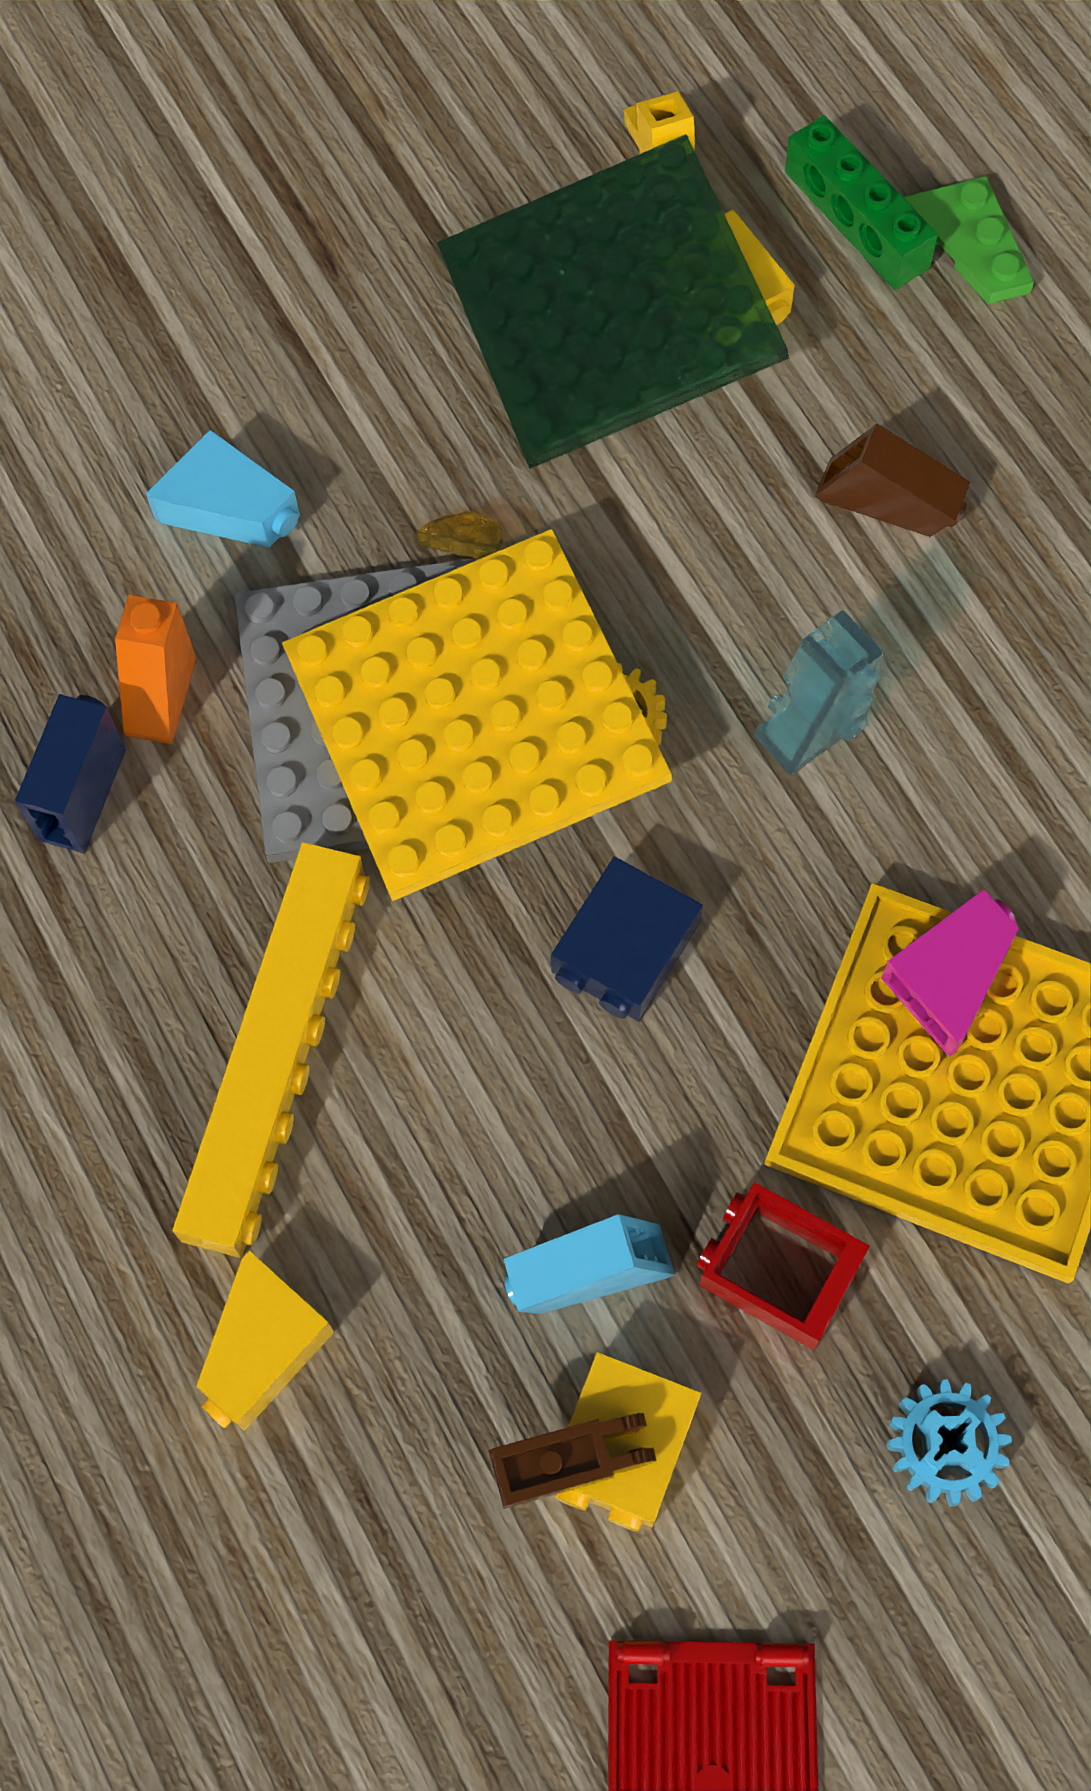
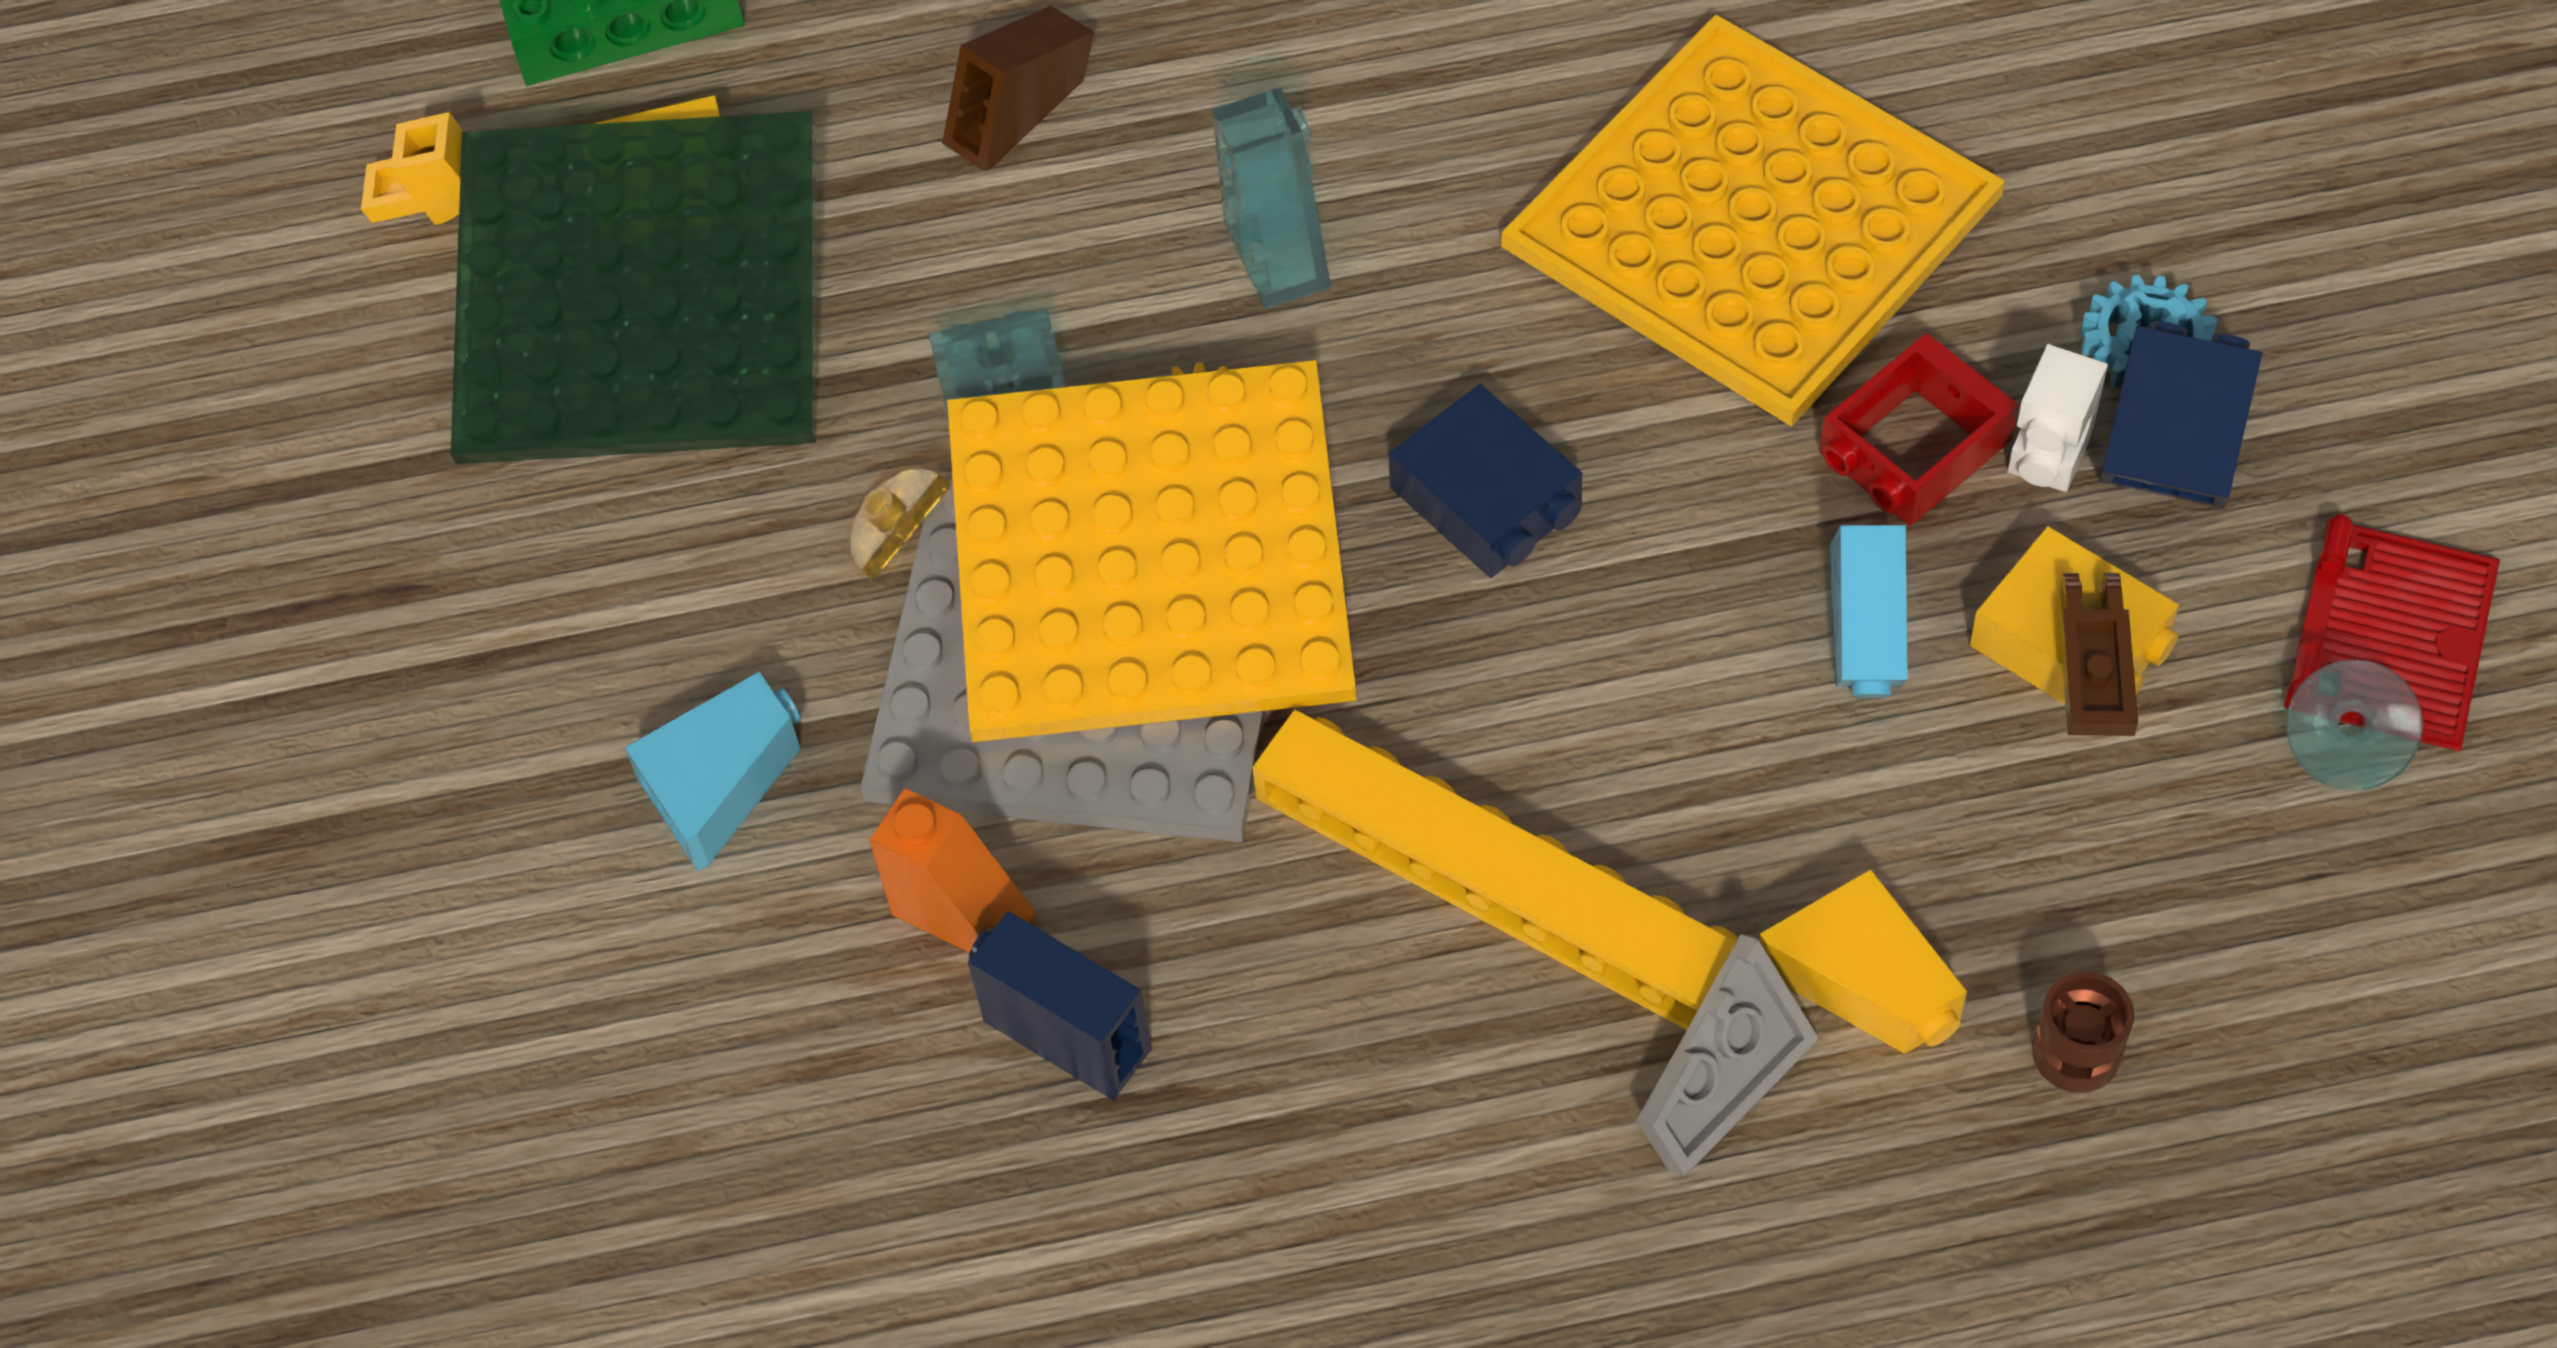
camera: 70 degrees left, 10 degrees down
(145, 1254) = (1727, 1059): none -> light grey wing
(230, 1526) = (2082, 1031): none -> copper wheel
(571, 1707) = (2388, 732): none -> clear light blue dish
(623, 560) = (997, 356): none -> clear light blue brick
(814, 1376) = (2057, 418): none -> white brick
(855, 1484) = (2181, 414): none -> dark blue brick
(952, 968) = (1642, 174): dark pink slope -> none

